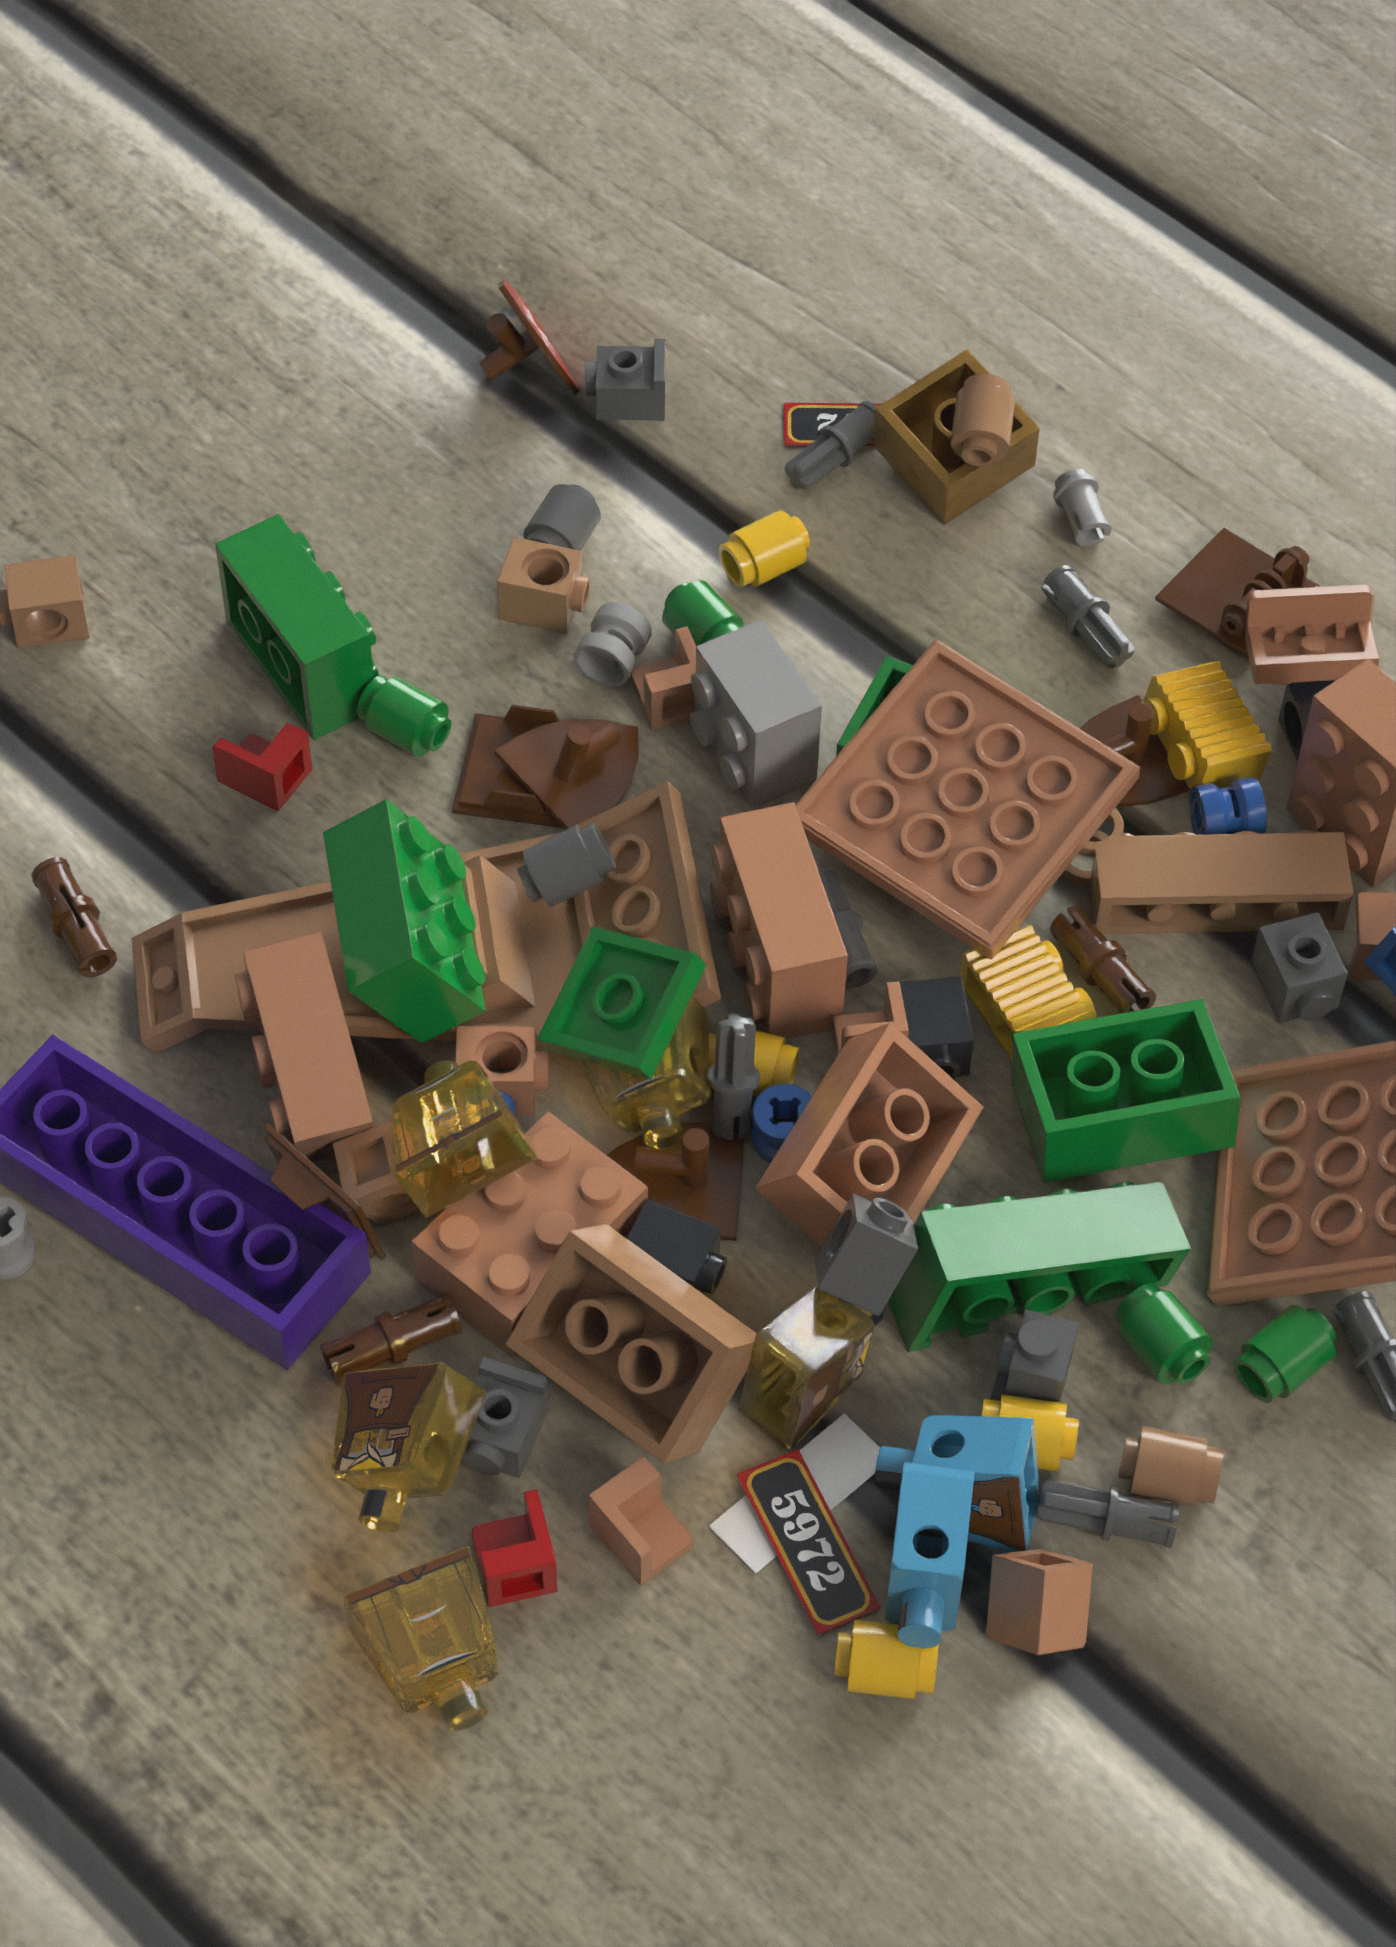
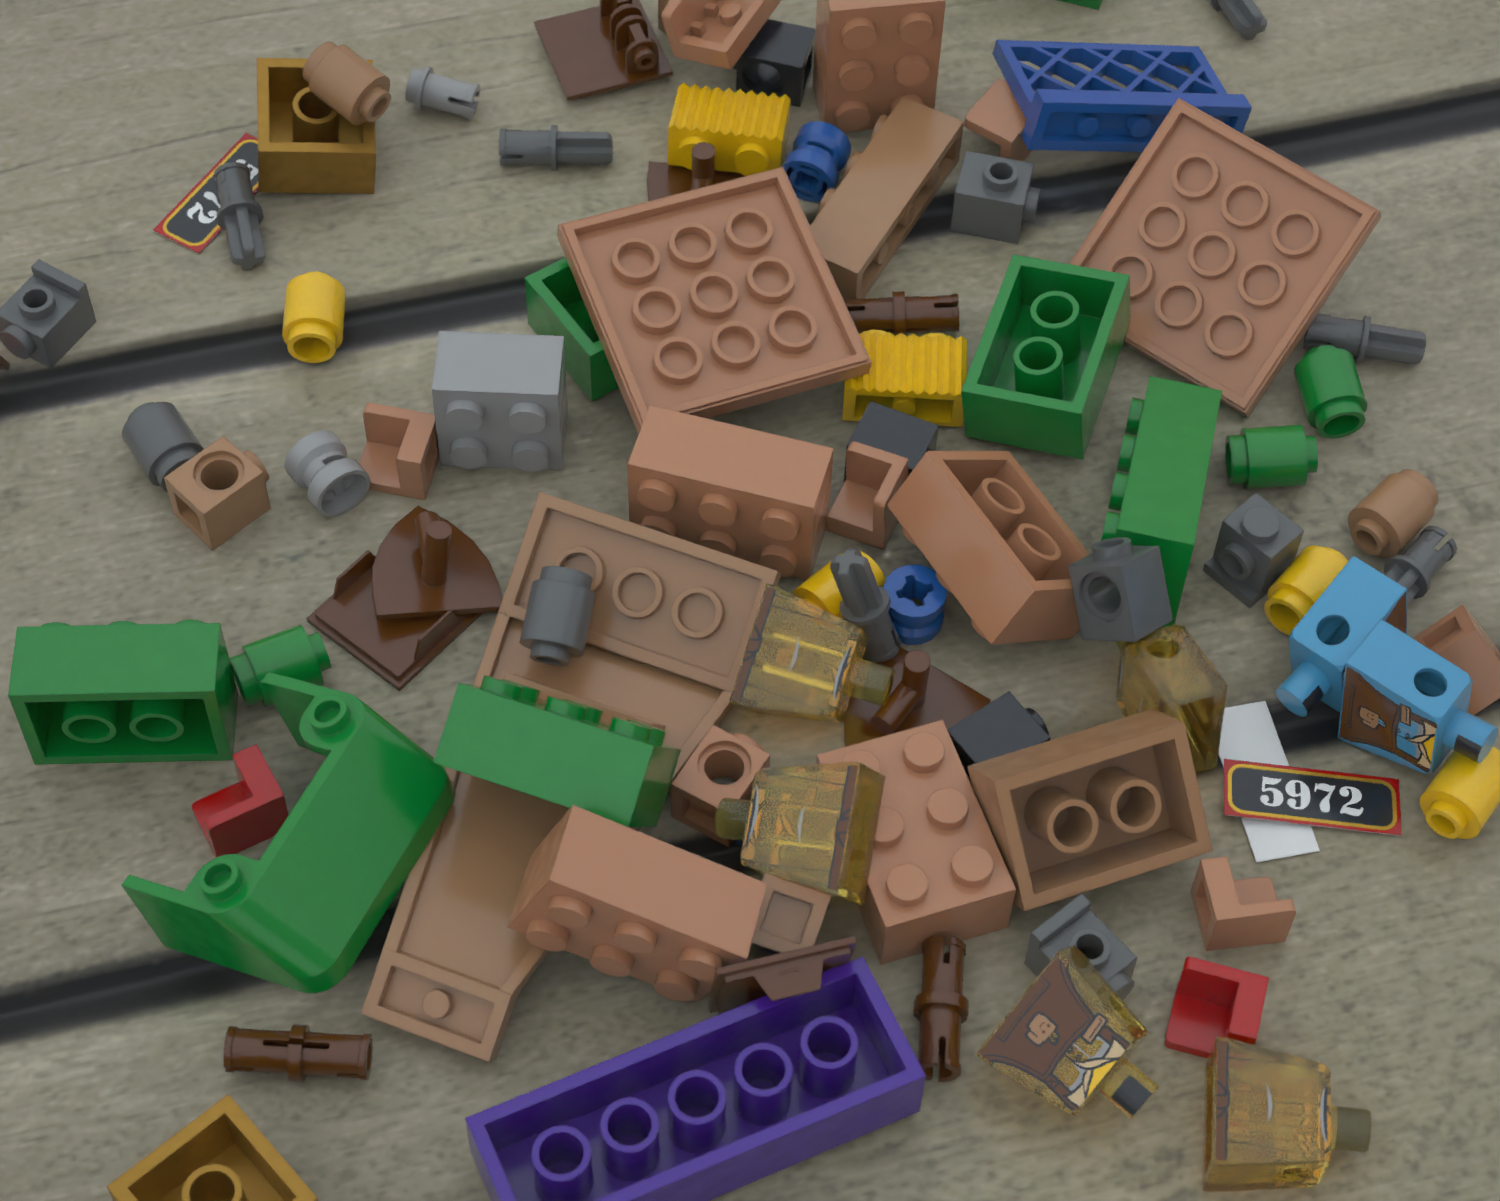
camera: 60 degrees left, 0 degrees up
(234, 827) = (331, 865): none -> green windscreen
(621, 1002) = (752, 639): green tile -> none
(700, 610) = (347, 391): green brick -> none

